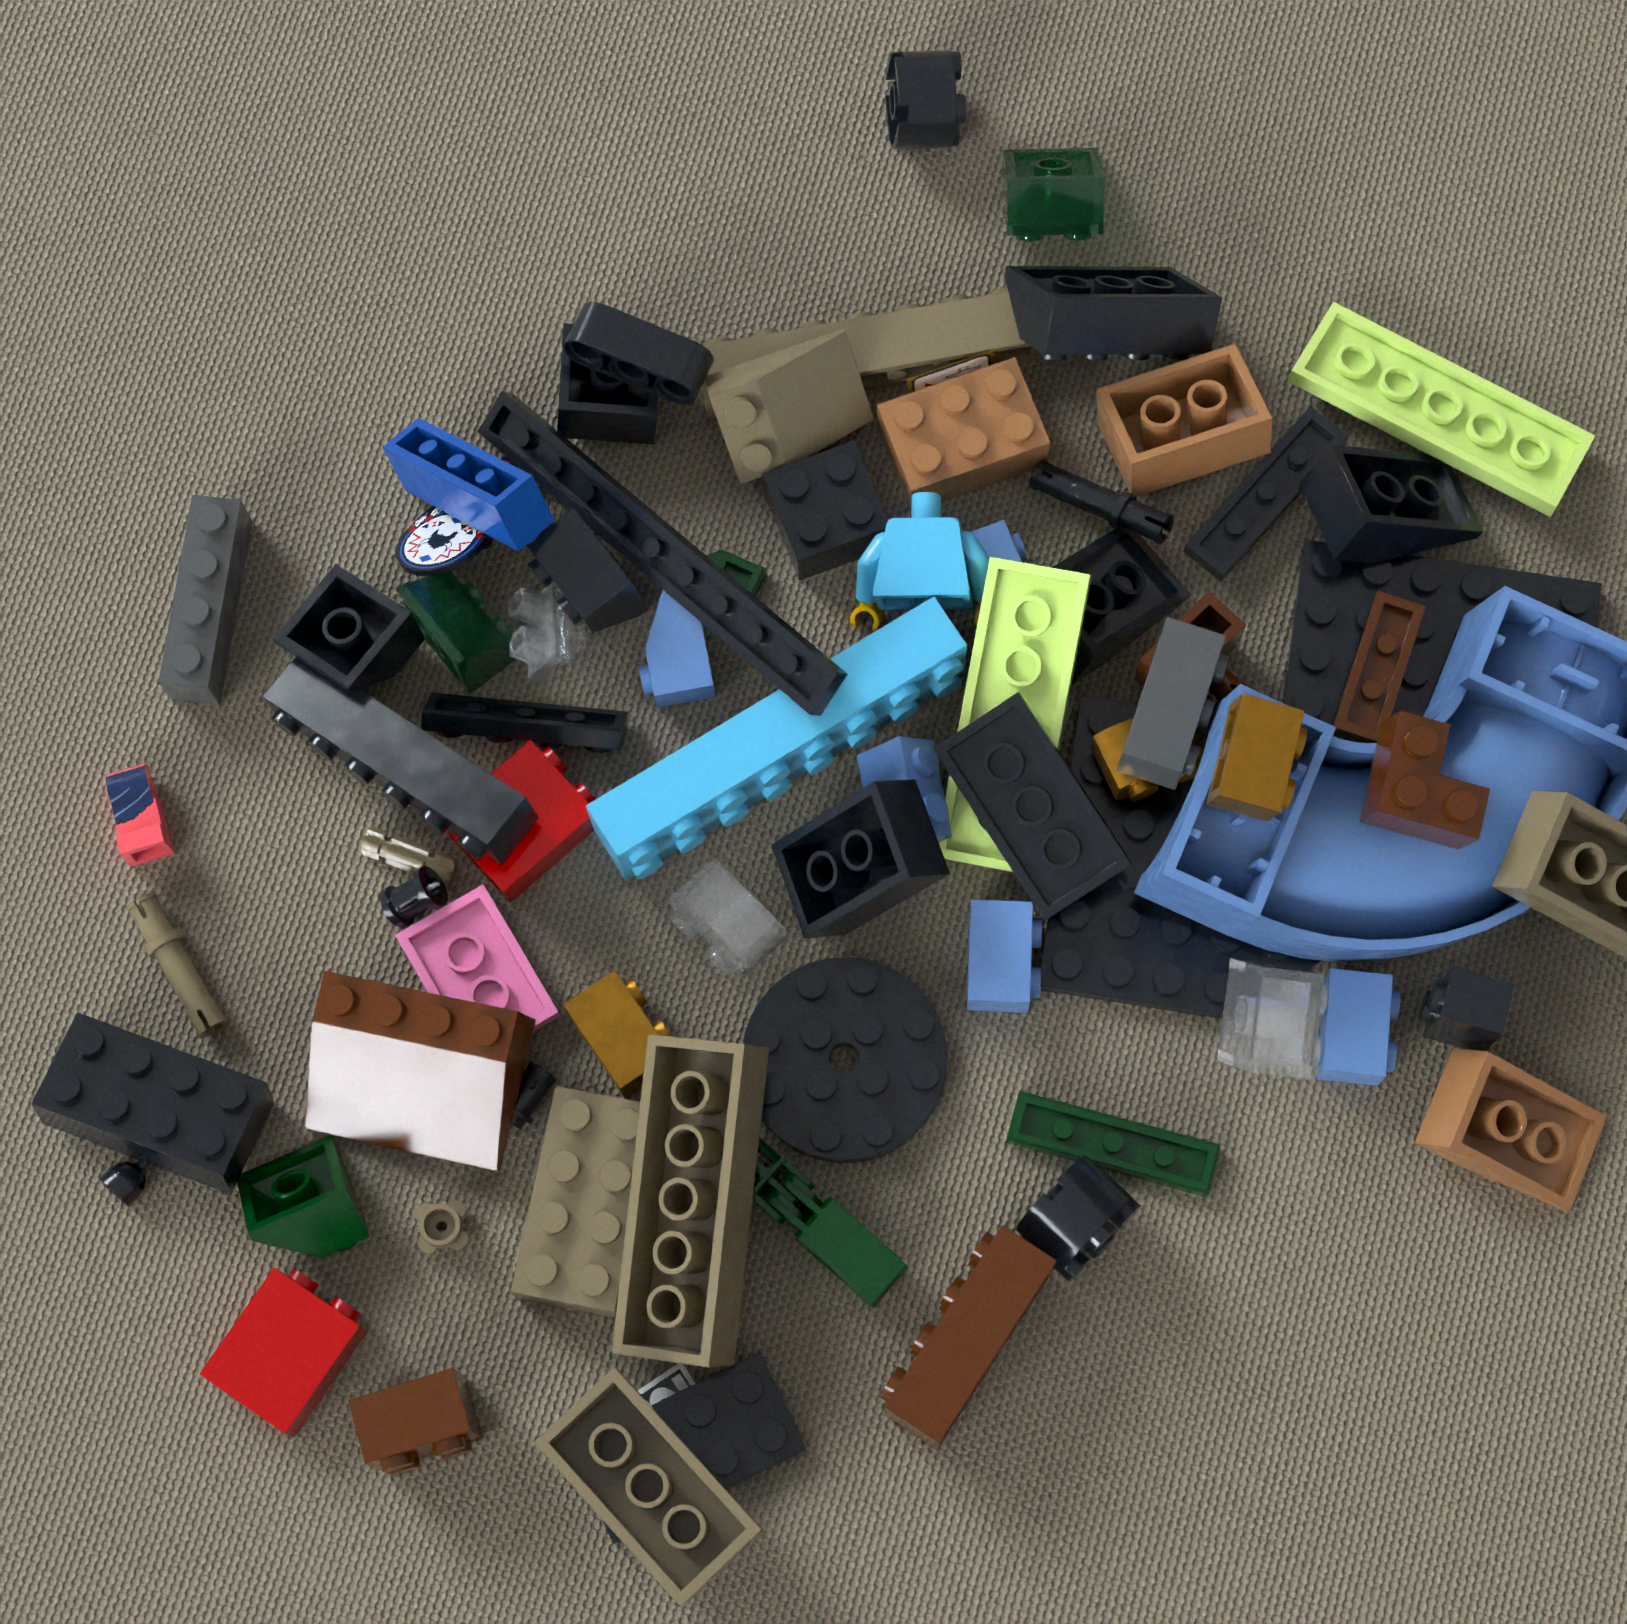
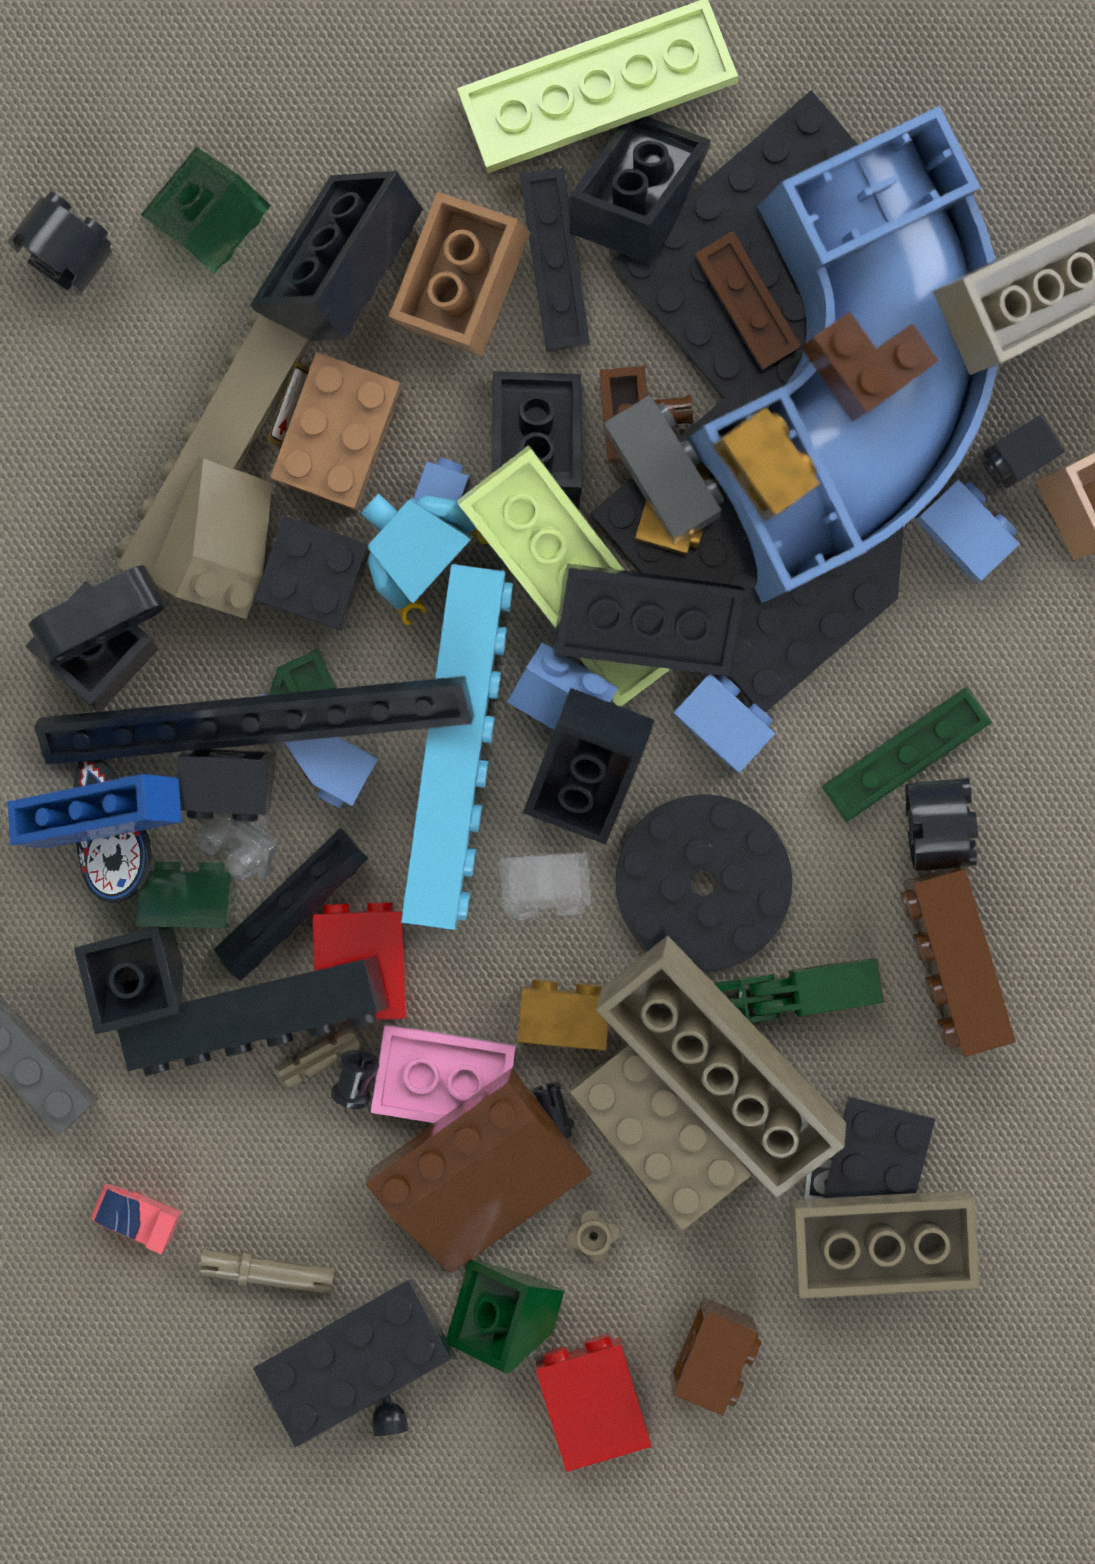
camera: 50 degrees left, 15 degrees up
(1119, 509) = (482, 374): black pin -> none
(1272, 1019) = (923, 587): clear brick -> none

